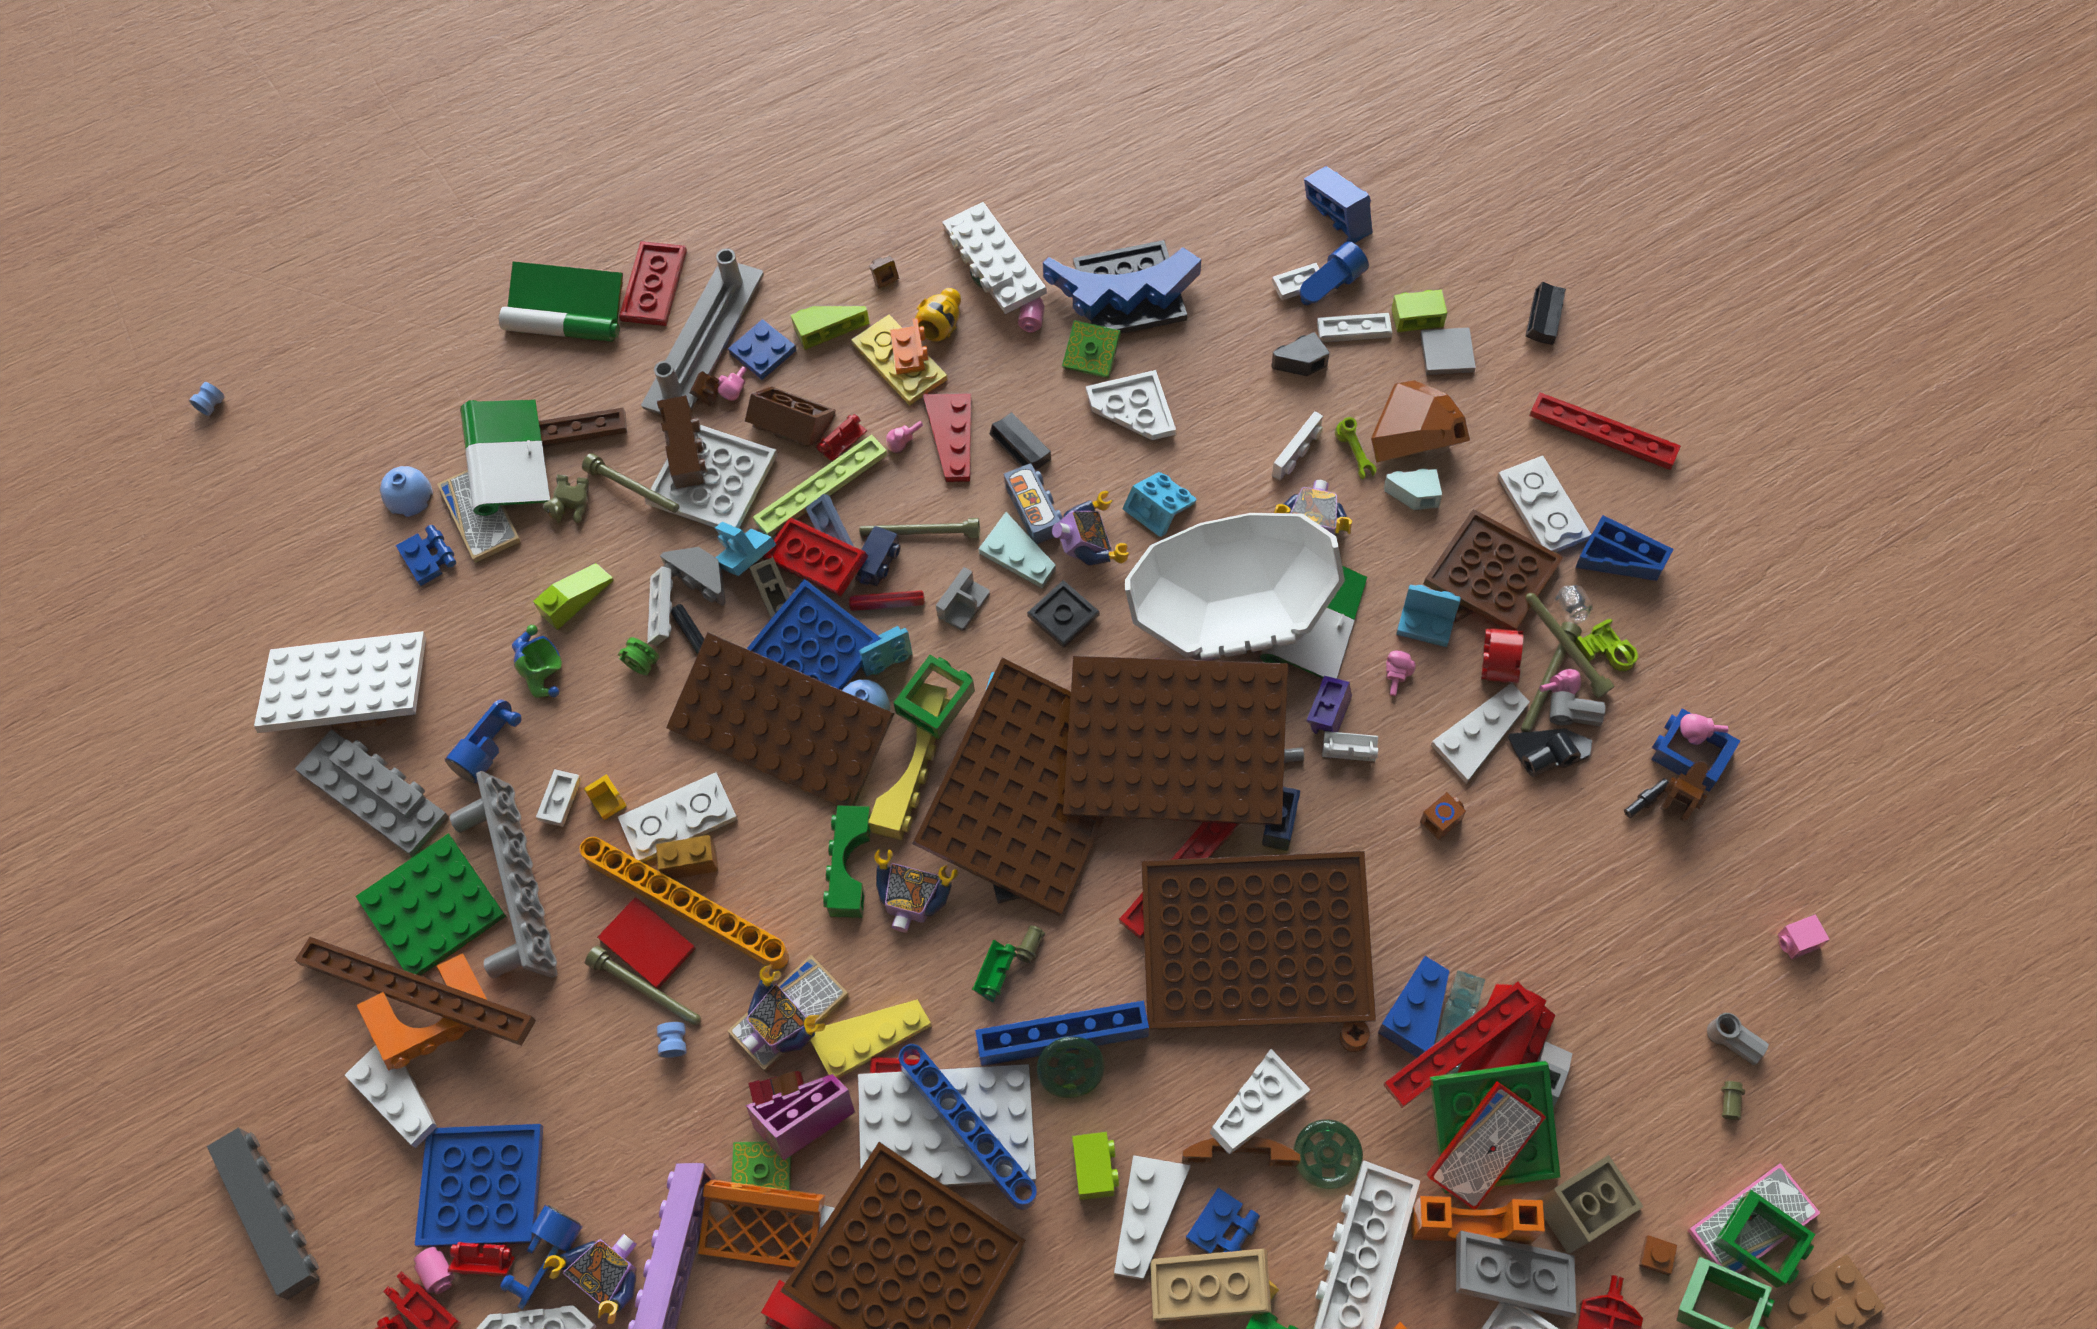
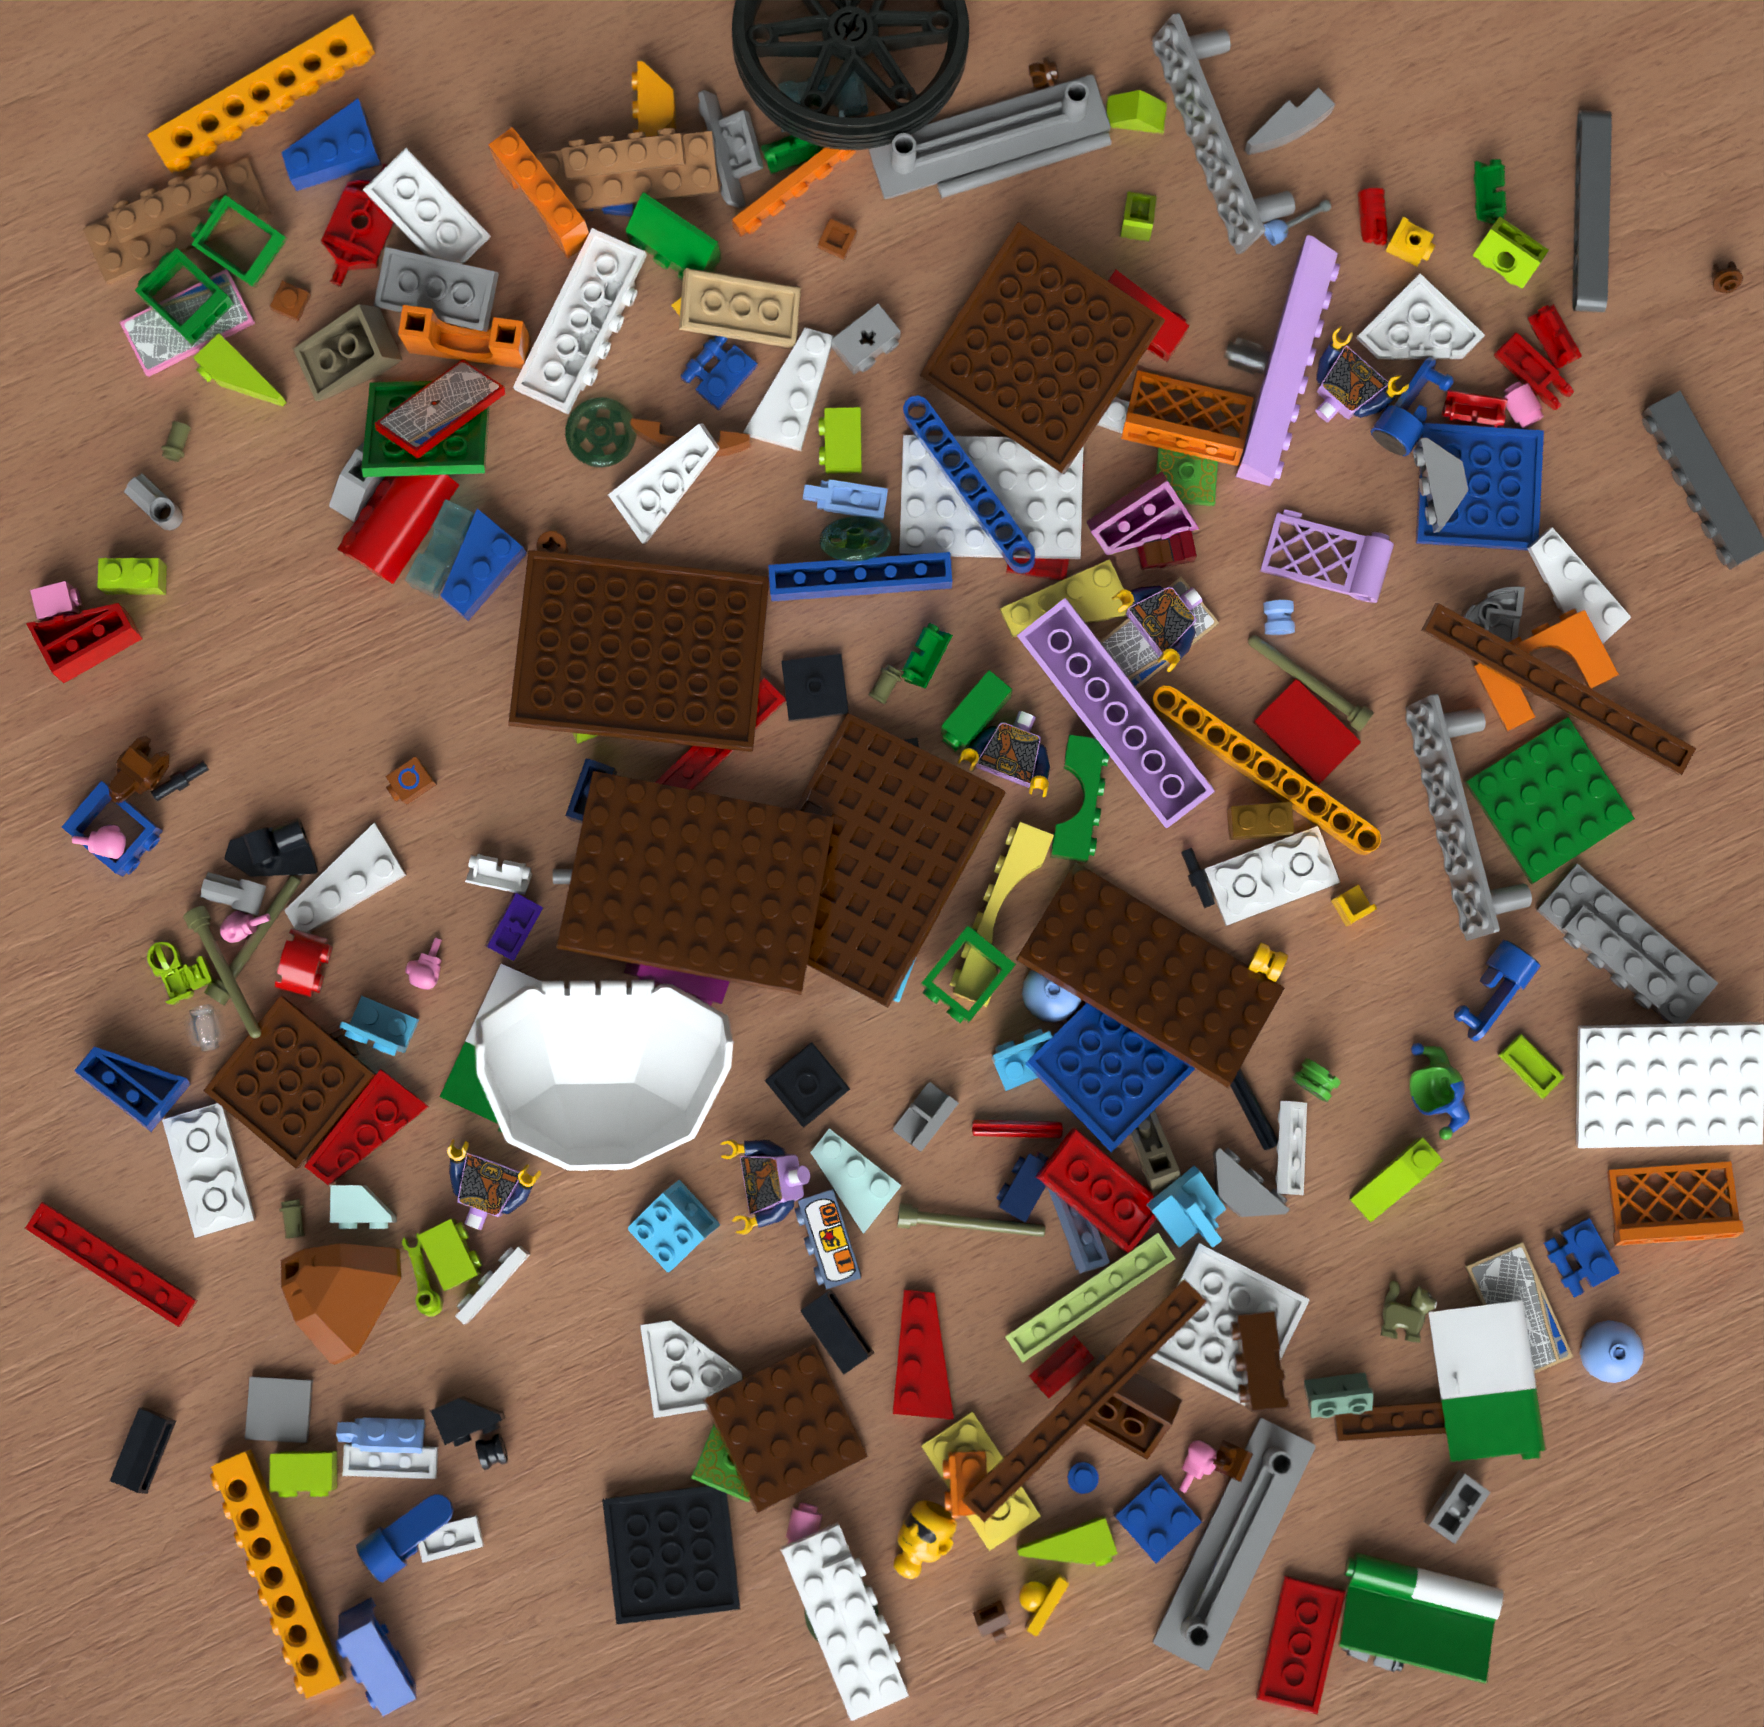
camera: 175 degrees left, 20 degrees up
(339, 579) = (1676, 1230): none -> orange fence
(459, 691) = (1531, 1066): none -> lime tile
(471, 1059) = (1499, 612): none -> light grey brick
(514, 1174) = (1441, 481): none -> light grey slope
(532, 371) = (1456, 1507): none -> light grey brick
(558, 798) = (1408, 912): white plate -> none
(589, 1097) = (1366, 567): none -> lavender piece
(594, 465) = (1373, 1360): olive piece -> none
(622, 438) = (1338, 1395): none -> sand green bracket
(680, 745) = (1261, 959): none -> yellow wheel
(704, 1292) = (1247, 356): none -> clear smoke brick
(742, 809) = (1198, 878): none -> black bar
(816, 400) = (1084, 1400): none -> reddish brown plate
(818, 933) = (1116, 713): none -> lavender slope
(820, 368) = (1083, 1478): none -> blue plate
(846, 285) = (1042, 1601): none -> yellow tile
(899, 437) = (991, 1355): bright pink piece -> none
(945, 919) = (975, 712): none -> green brick
(1053, 372) = (785, 1428): none -> reddish brown plate
(1076, 1287) = (874, 325): none -> light grey brick
(1082, 1111) = (848, 498): none -> light blue hinge
(1094, 936) = (815, 687): none -> black plate
(1124, 291) = (719, 1540): arch -> none
(1277, 337) = (491, 1451): none -> black wheel
(1335, 463) = (450, 1253): none -> lime brick
(1362, 340) = (383, 1434): none -> light blue hinge
(1423, 546) = (368, 1123): none -> red wing
(1425, 248) = (293, 1582): none -> light orange brick
(1460, 1044) = (445, 508): red plate -> none
(1469, 481) = (292, 1218): none -> olive pin
(1697, 1174) = (232, 371): none -> lime slope
(1739, 966) = (132, 576): none -> lime brick
(1768, 902) = (84, 639): none -> red wedge

